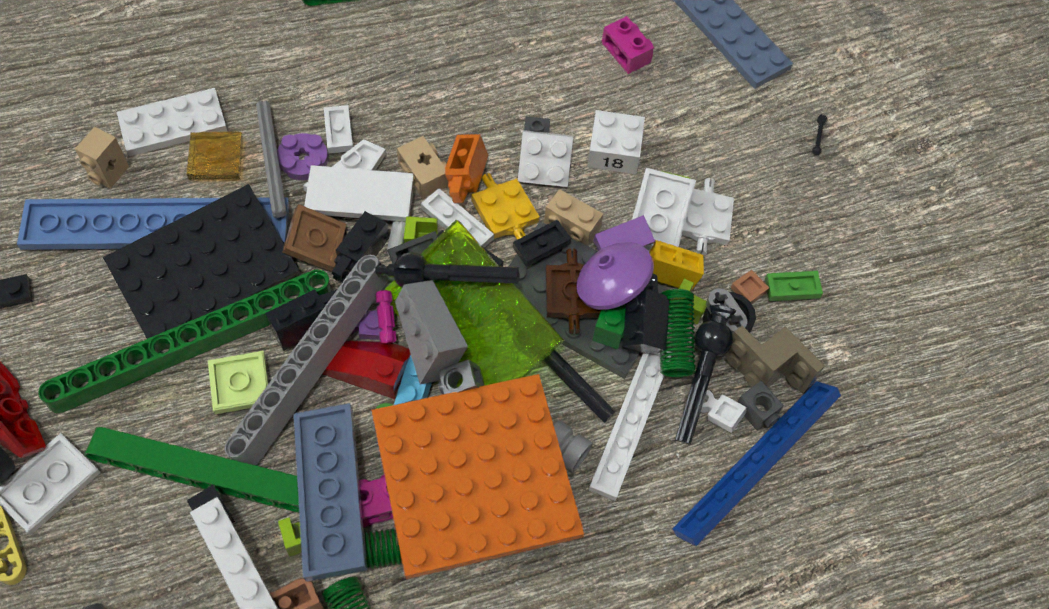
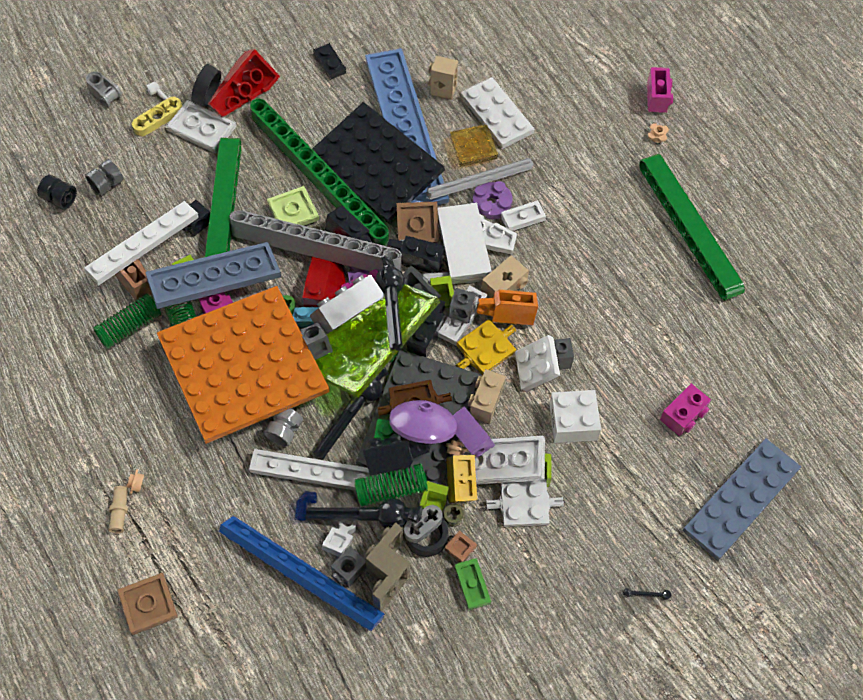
camera: 80 degrees right, 0 degrees up
(454, 207) = (462, 305): none -> dark grey brick
(541, 243) = (453, 374): black plate -> none
(675, 446) = (302, 503): none -> clear blue arm
(710, 280) = (453, 507): none -> olive bush

